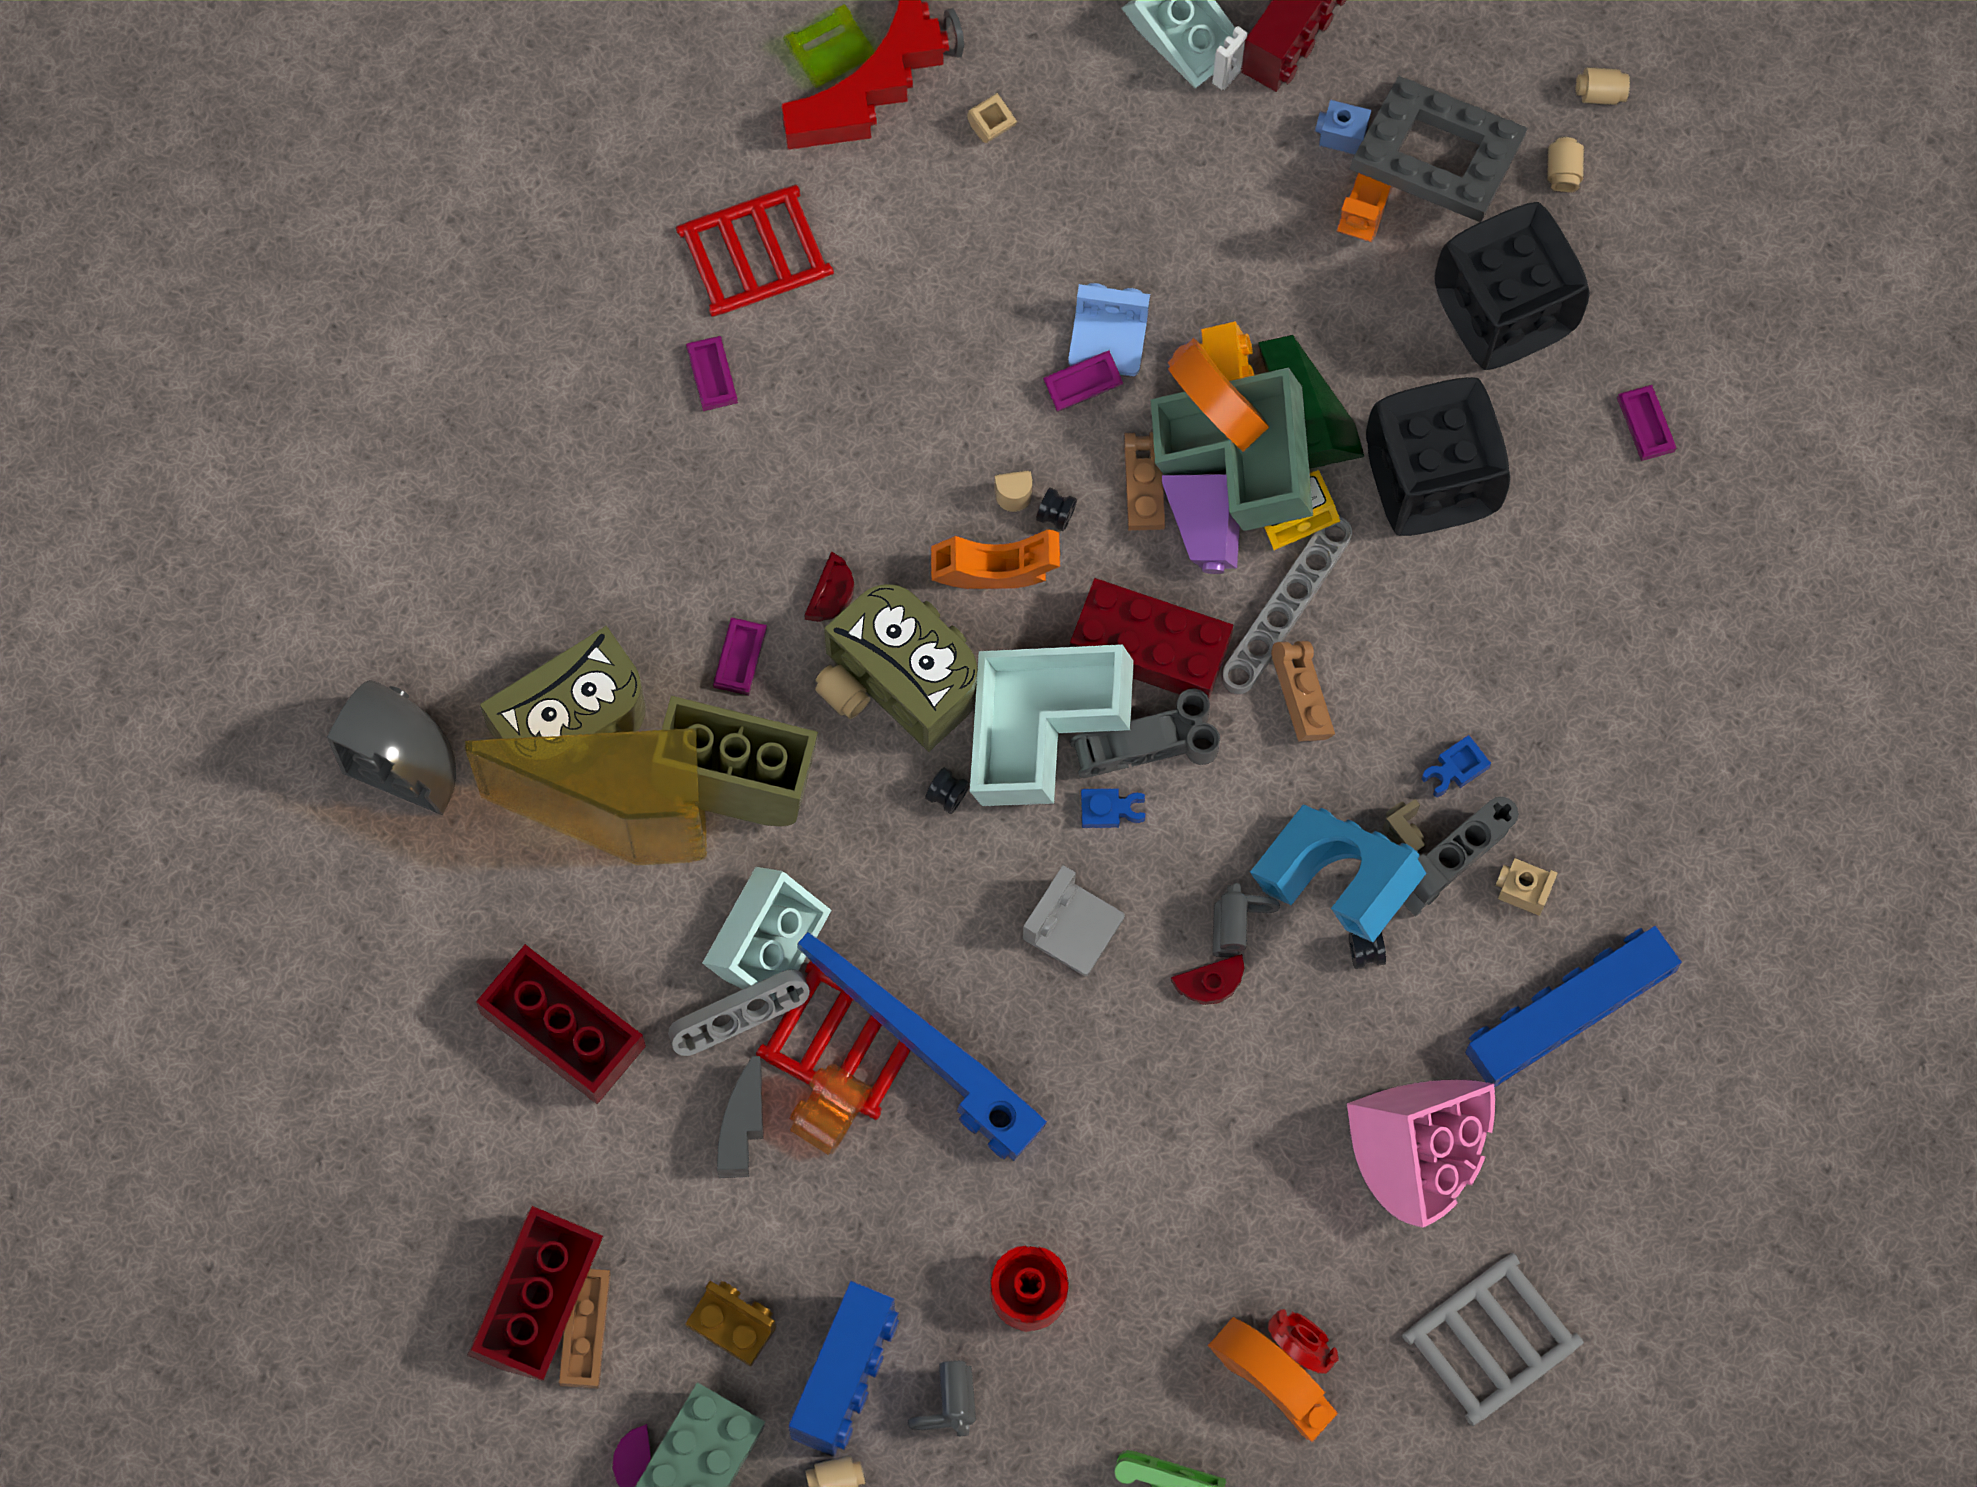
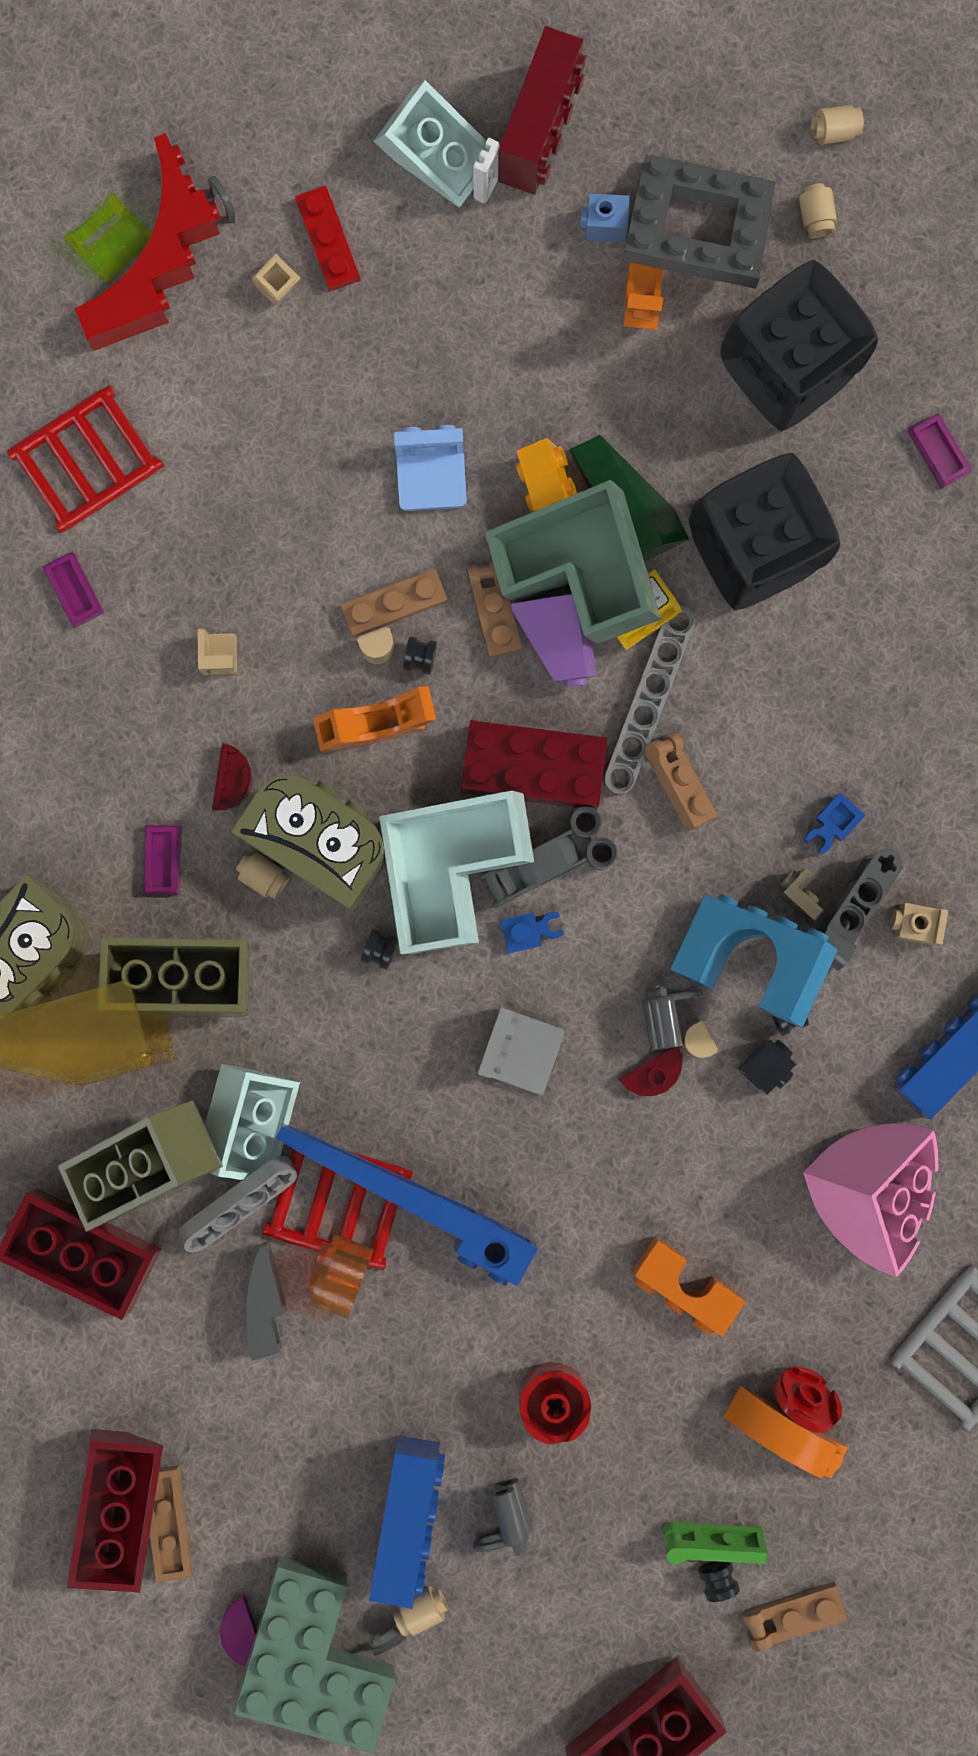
camera: 15 degrees left, 15 degrees up
(654, 936) = (140, 1165): none -> olive brick
(732, 1322) = (297, 1487): pearl gold bracket -> none
(845, 465) = (217, 653): none -> tan panel
(1042, 453) = (394, 603): none -> medium nougat plate
(1053, 91) = (327, 238): none -> red plate
(1083, 381) = (417, 523): magenta tile -> none
(1216, 395) = (545, 519): orange arch -> none
(1218, 1229) = (712, 1306): none -> orange arch
(1264, 953) = (698, 1040): none -> tan brick
(1334, 995) = (769, 1066): none -> black brick

